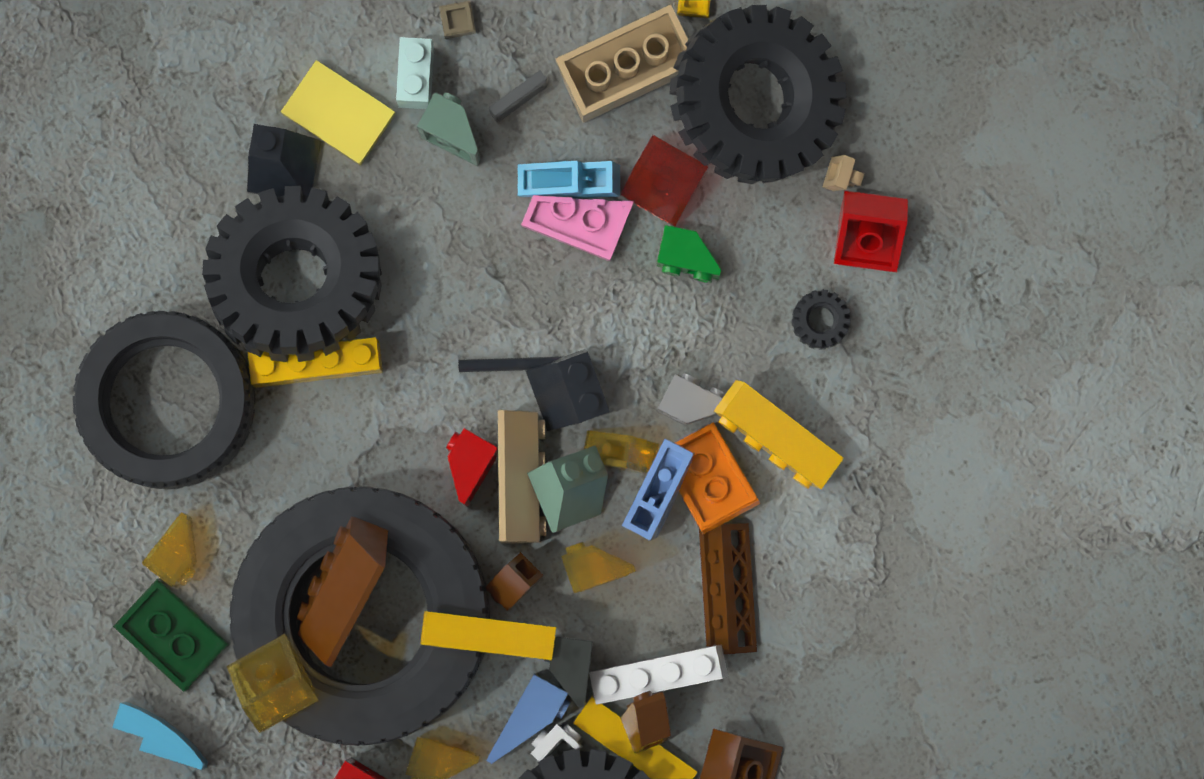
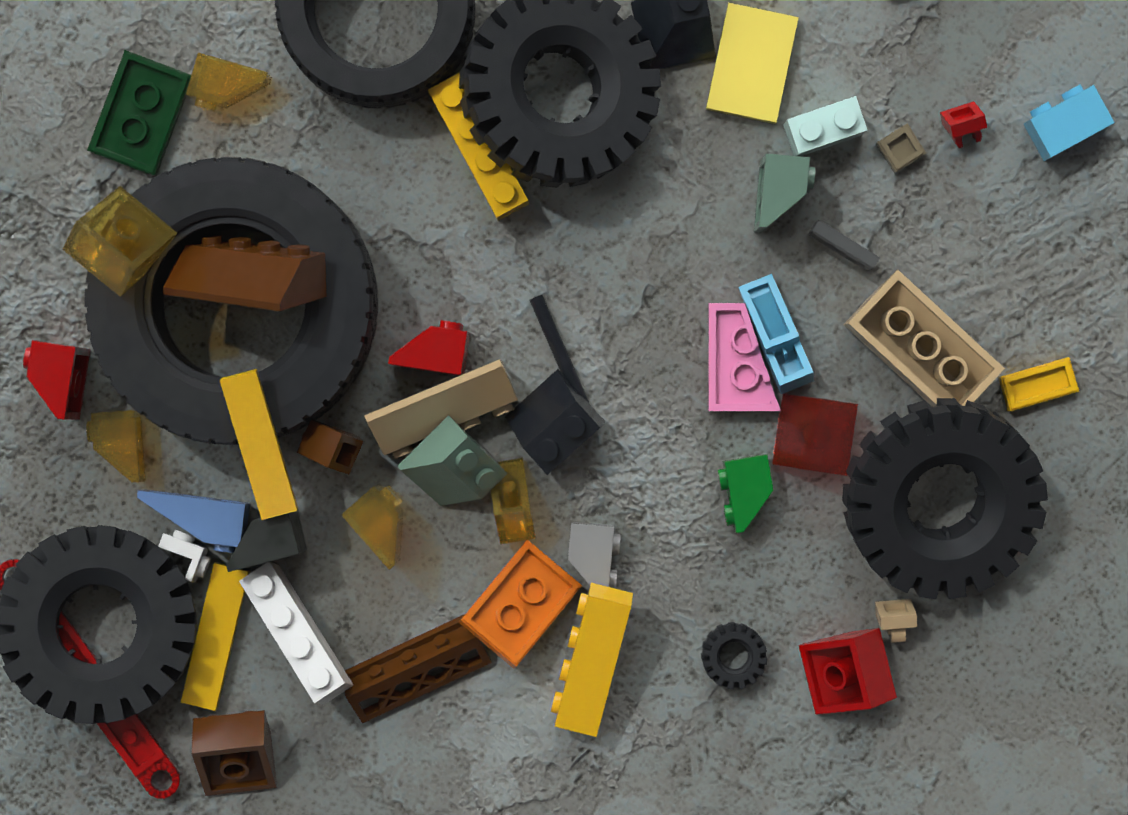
camera: 70 degrees right, 5 degrees up
(158, 736) = (31, 144): medium azure slope -> none
(646, 721) = (242, 640): reddish brown slope -> none
(659, 490) = (485, 558): medium blue slope -> none

